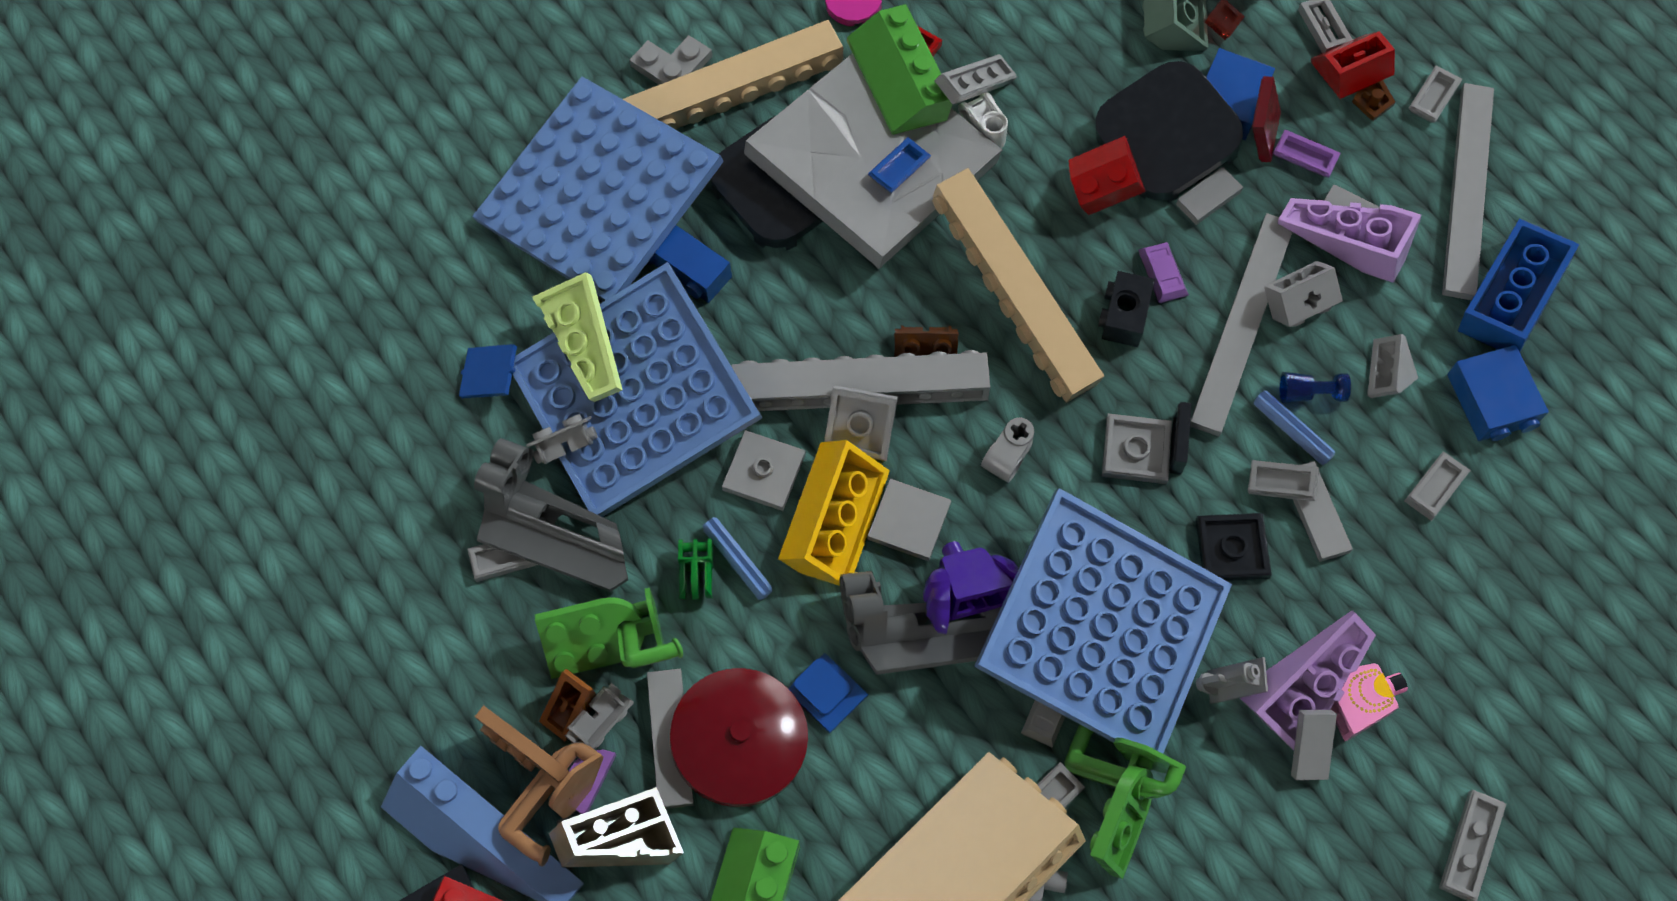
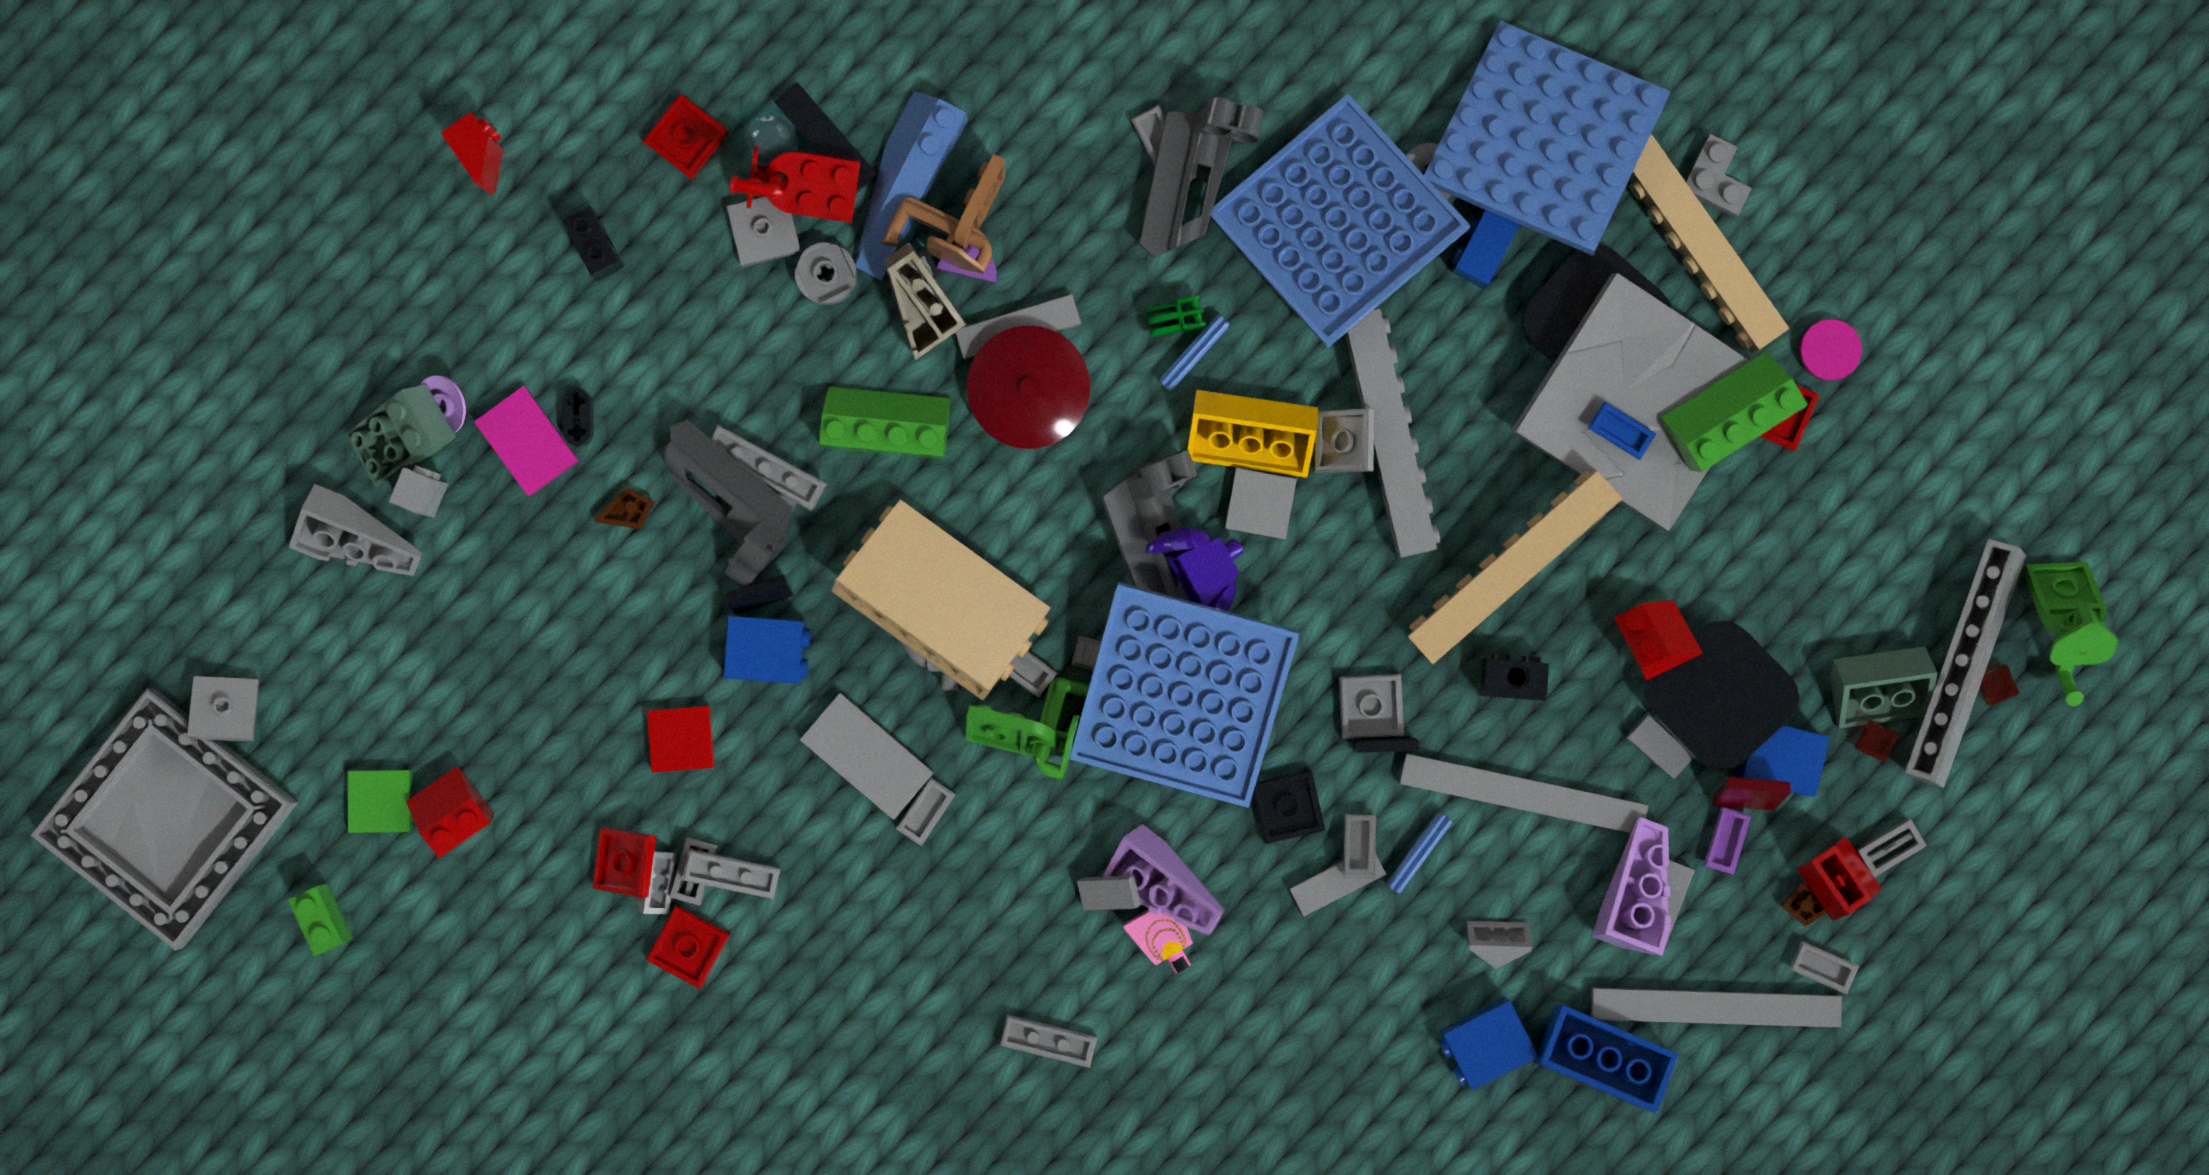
camera: 85 degrees right, 20 degrees up
(488, 371) = (1336, 78): blue piece -> none
(550, 445) = (1284, 174): light grey hinge -> none
(566, 703) = (1029, 231): dark orange slope -> none
(578, 323) = (1392, 153): yellowish green wing -> none
(602, 635) = (1096, 249): bright green plate -> none
(609, 709) = (1033, 269): light grey hinge -> none
(763, 470) = (1285, 360): light grey plate -> none
(827, 692) = (1084, 457): blue piece -> none
(922, 342) = (1441, 476): reddish brown hinge -> none
(975, 79) = (1739, 491): light grey tile -> none
(986, 116) = (1708, 505): white piece -> none
(1008, 453) = (1338, 583): light grey piece -> none
(1162, 267) = (1565, 710): medium lavender tile -> none
(1234, 681) = (1154, 816): light grey hinge -> none
(1303, 294) = (1559, 848): light grey brick -> none
(1303, 387) = (1461, 855): clear blue piece -> none
(1437, 485) = (1384, 992): light grey tile -> none

